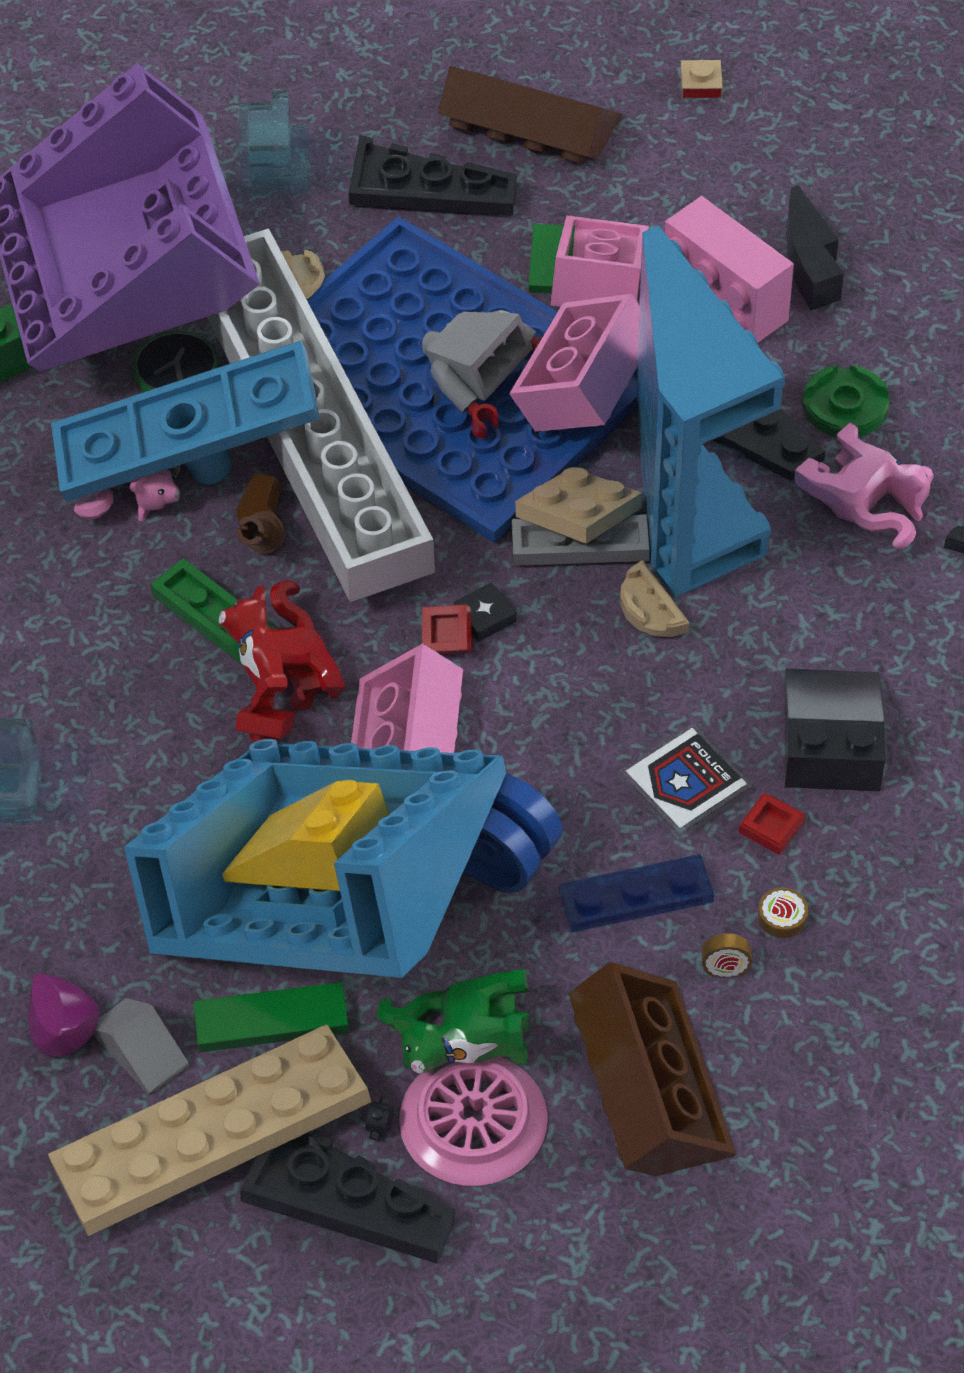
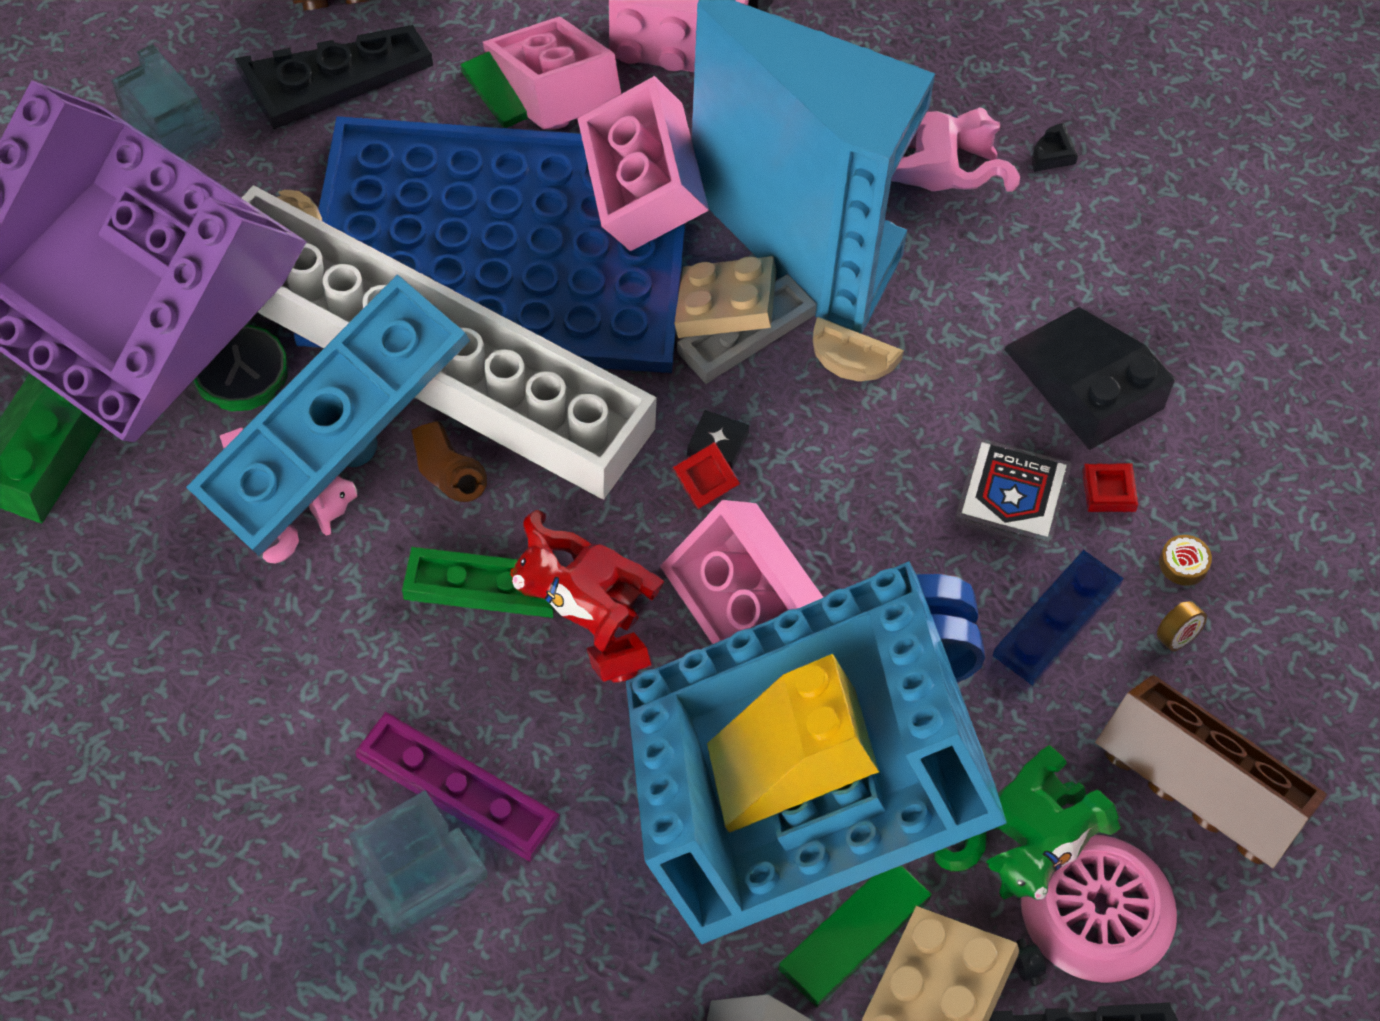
camera: 40 degrees left, 5 degrees up
(78, 746) = (458, 786): none -> magenta tile
(476, 357) = (535, 210): light grey torso -> none

